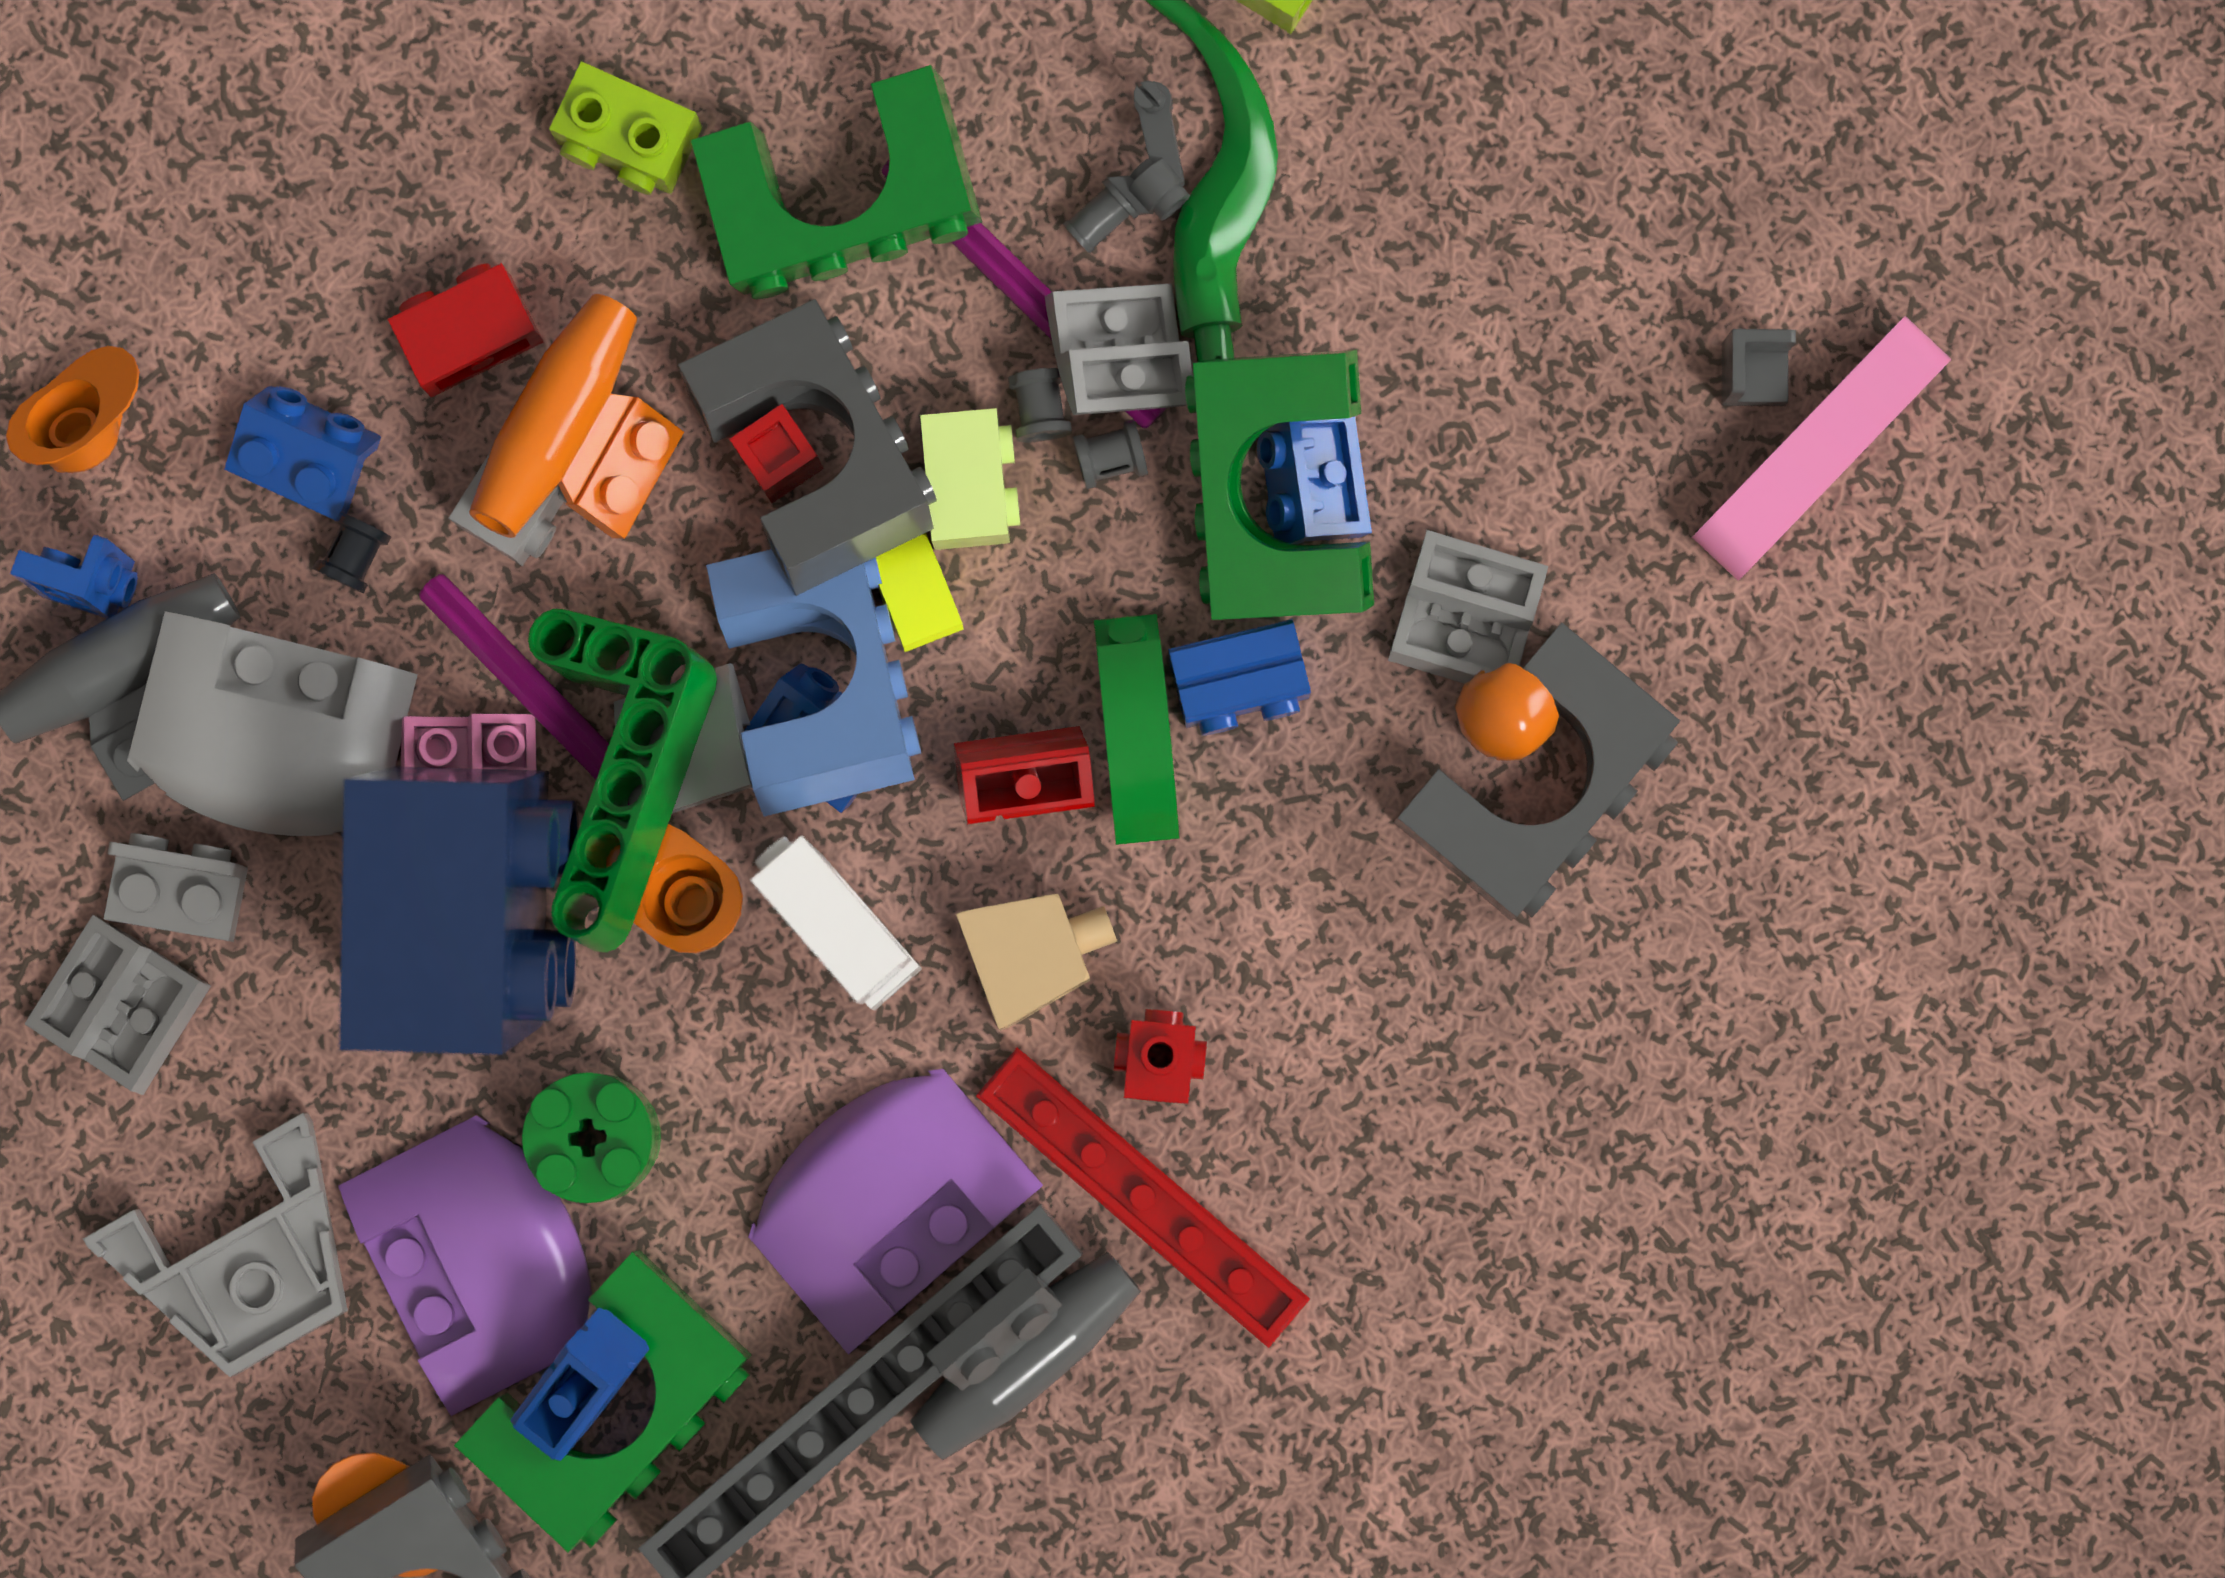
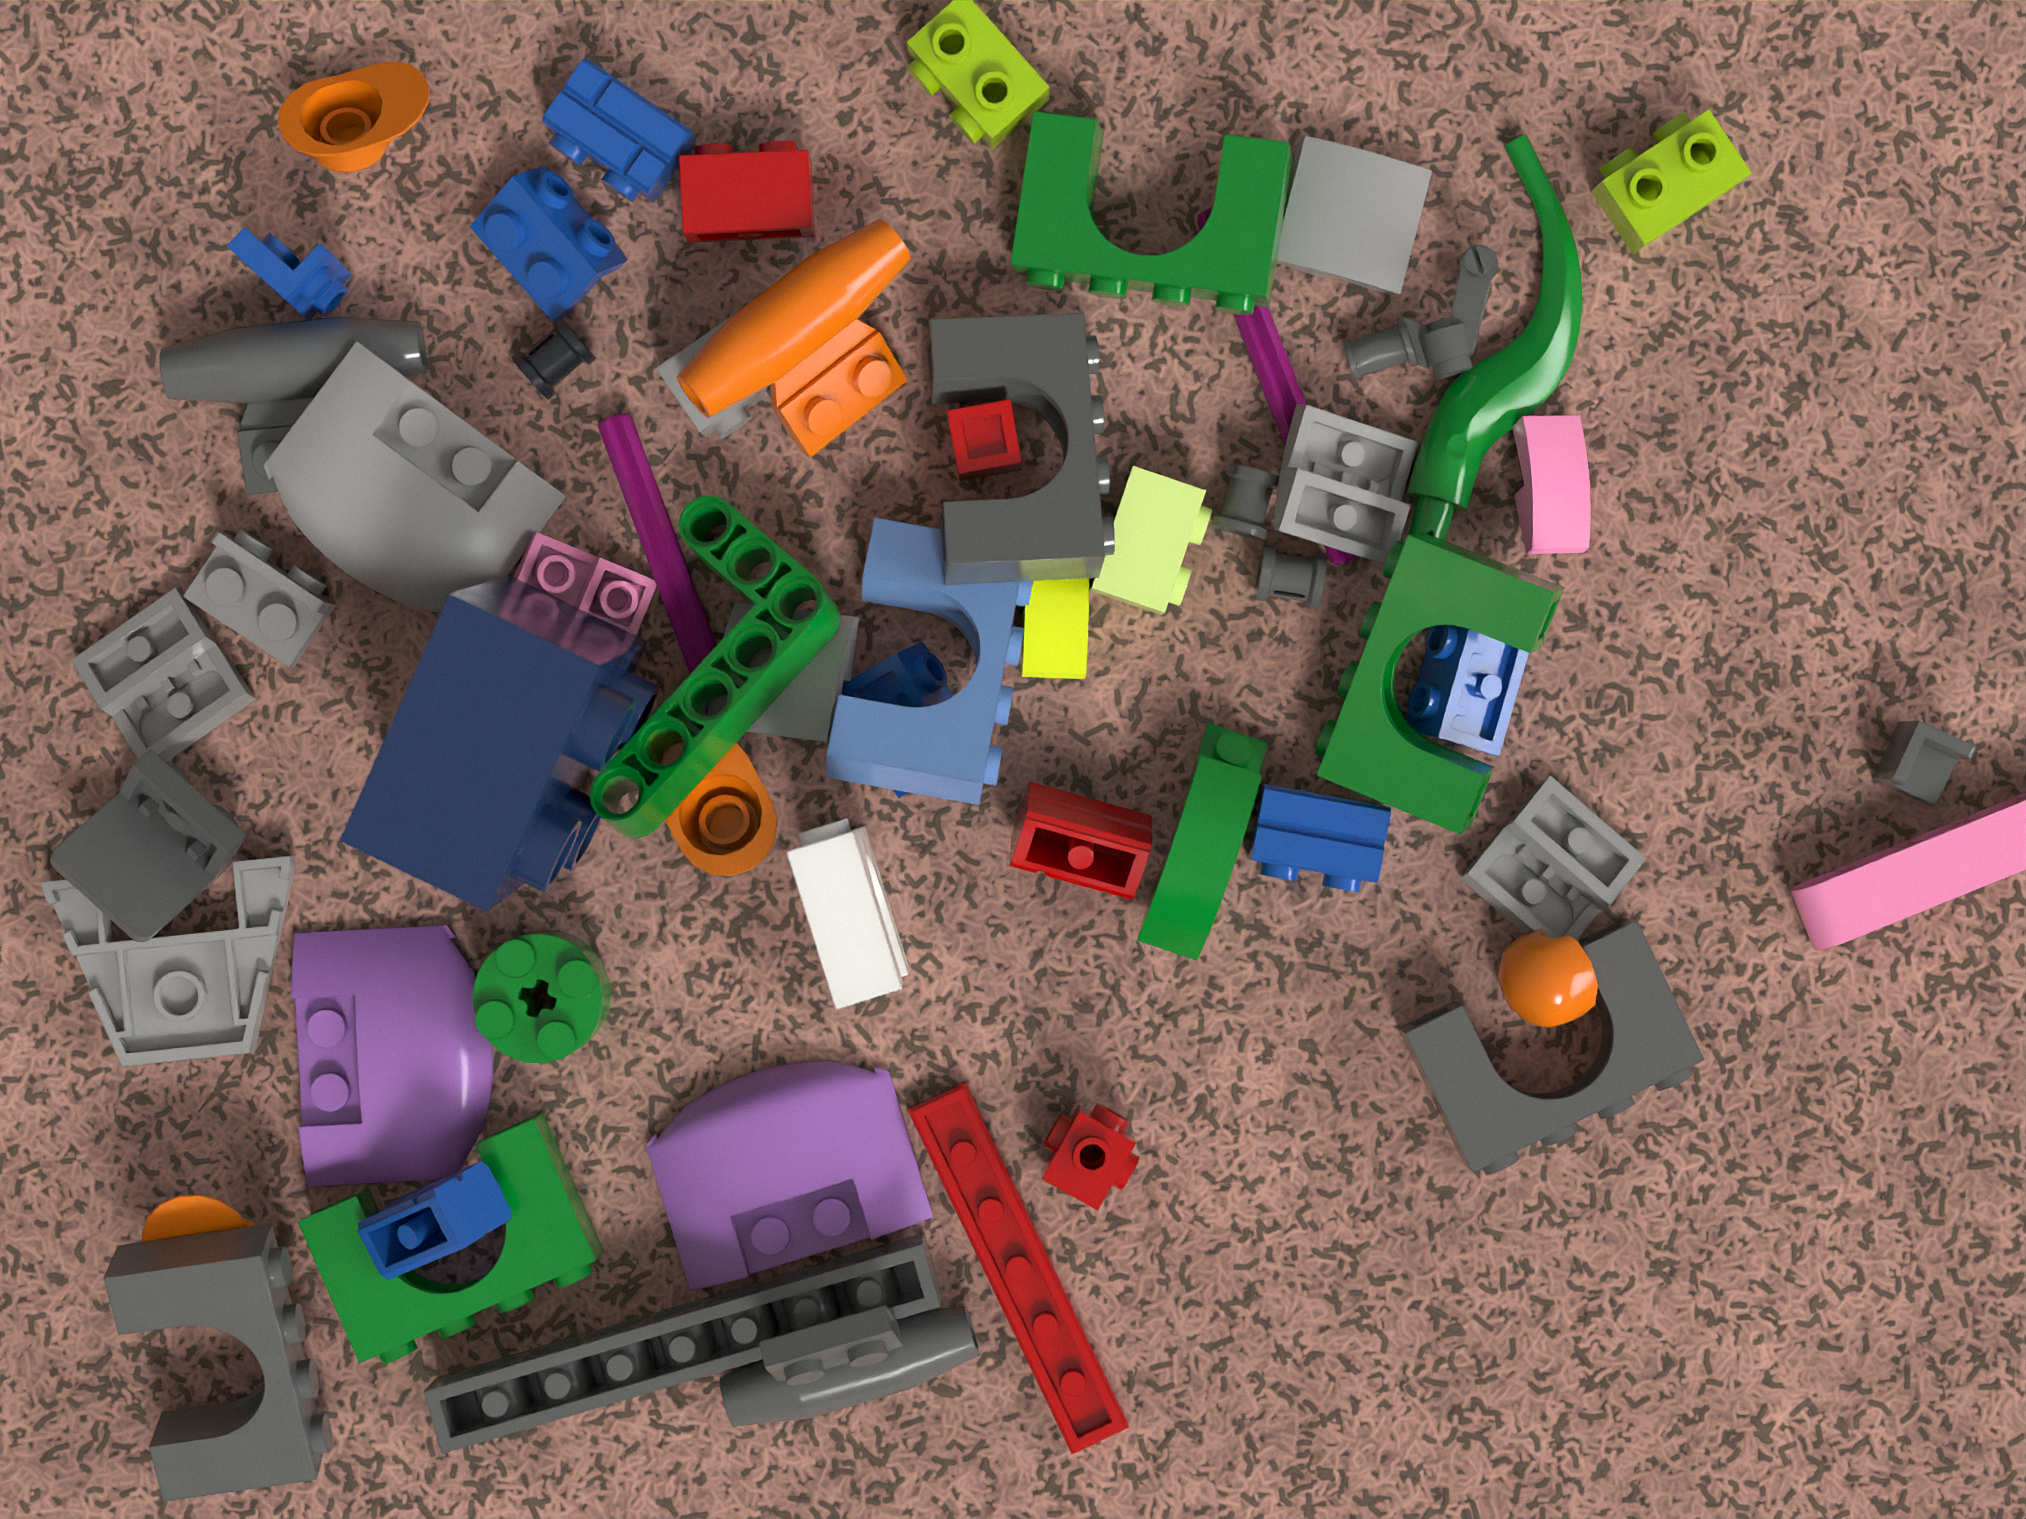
camera: 20 degrees right, 5 degrees up
(171, 1160) = (149, 849): none -> dark grey bracket
(322, 325) = (617, 131): none -> blue brick
(1020, 108) = (1351, 214): none -> light grey slope
(1031, 952) = (1016, 1004): tan torso -> none
(1314, 269) = (1556, 487): none -> bright pink slope

